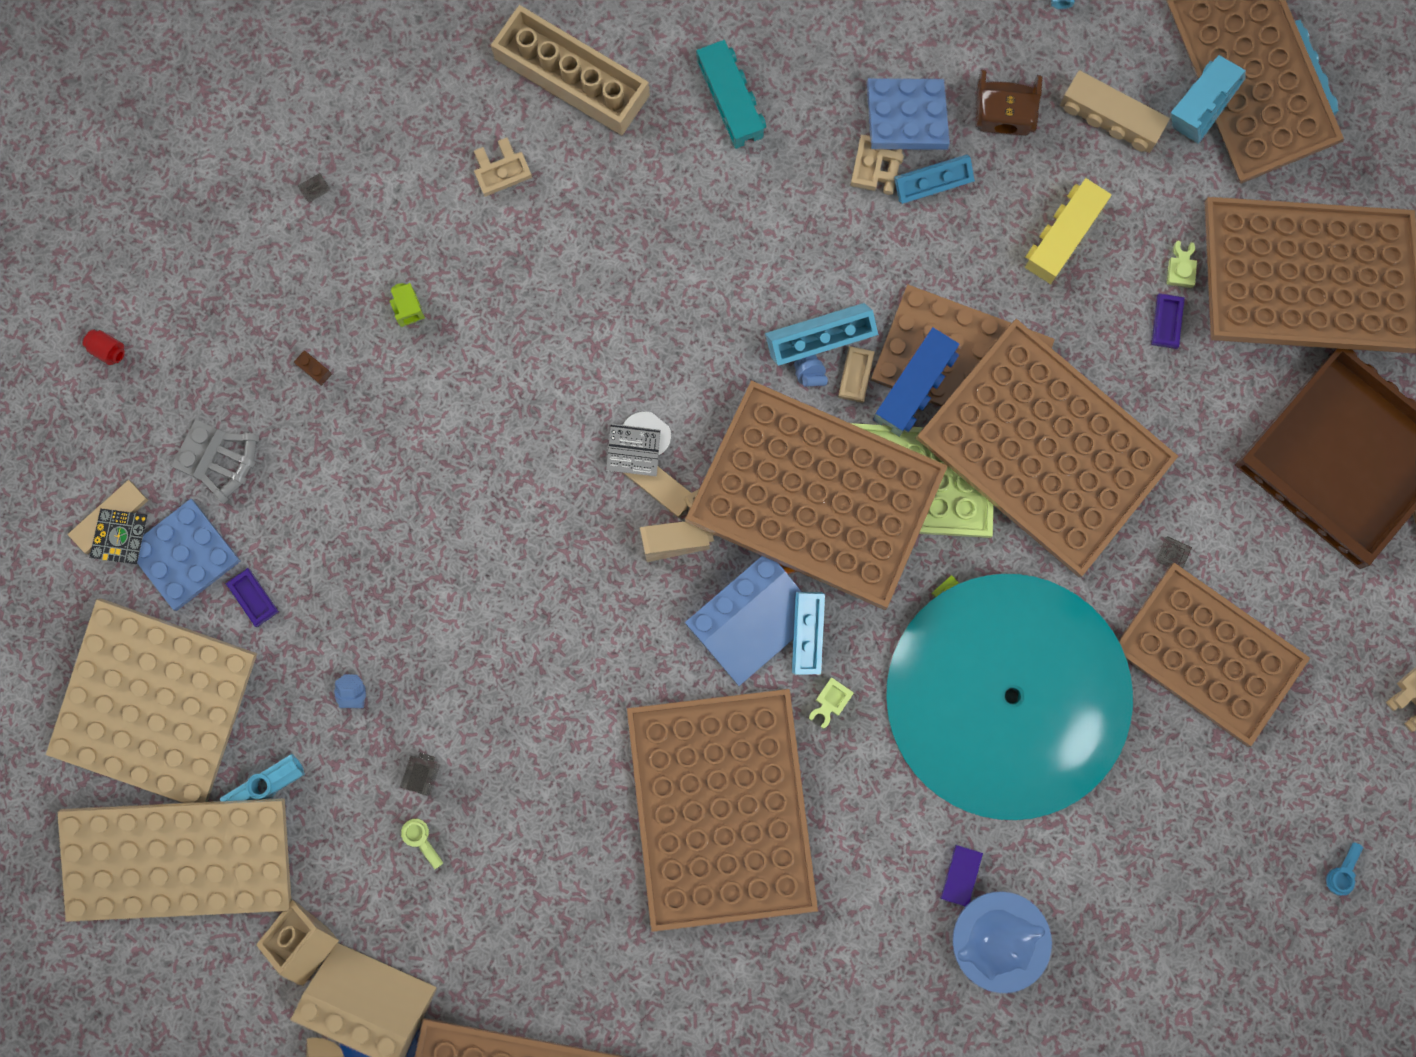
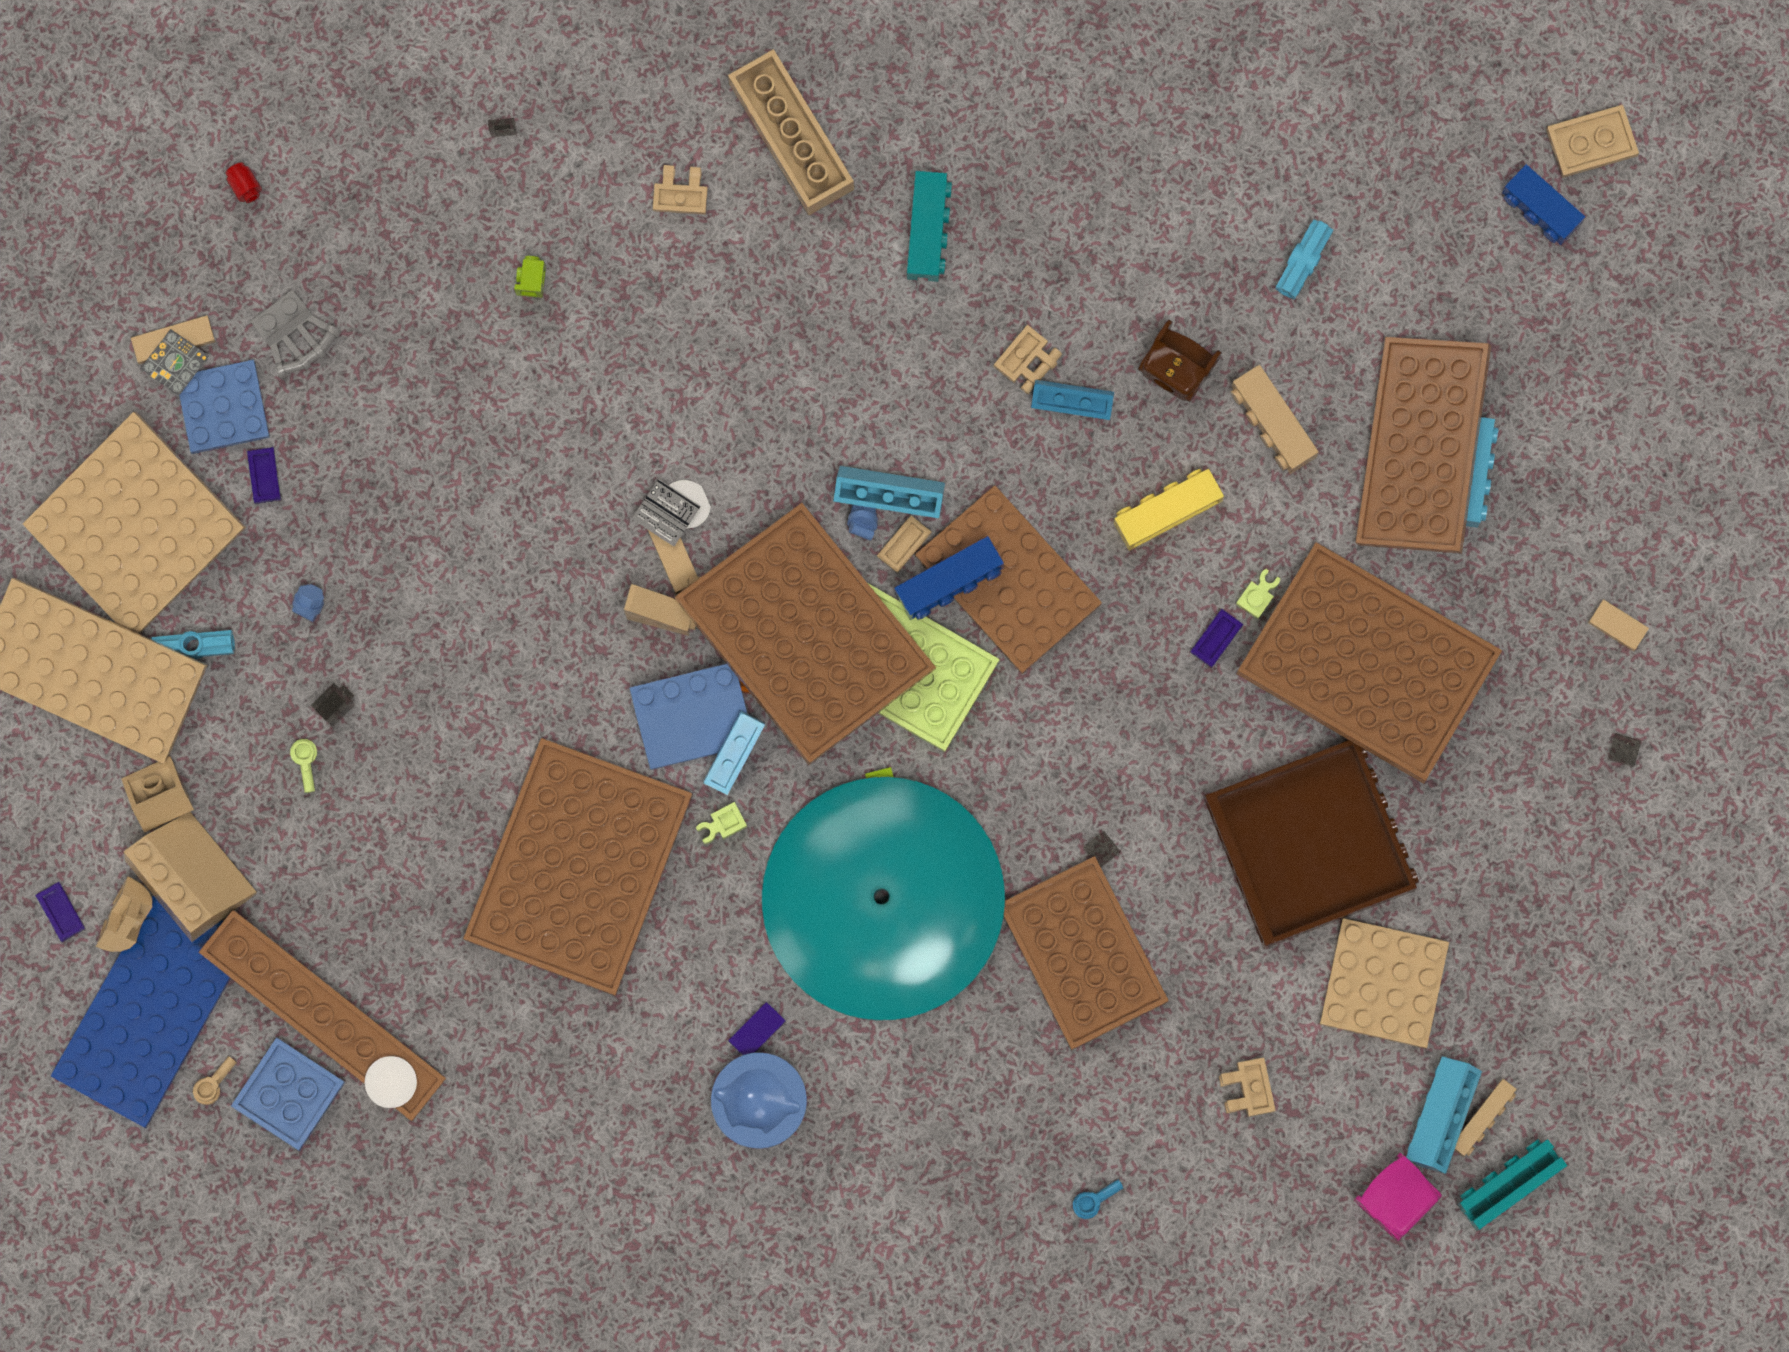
camera: 30 degrees right, 0 degrees up
(312, 368) = (418, 294): reddish brown piece -> none
(907, 114) = (1081, 326): medium blue plate -> none
(1047, 447) = (1036, 696): medium nougat plate -> none
(1207, 98) = (1361, 451): medium azure wedge -> none

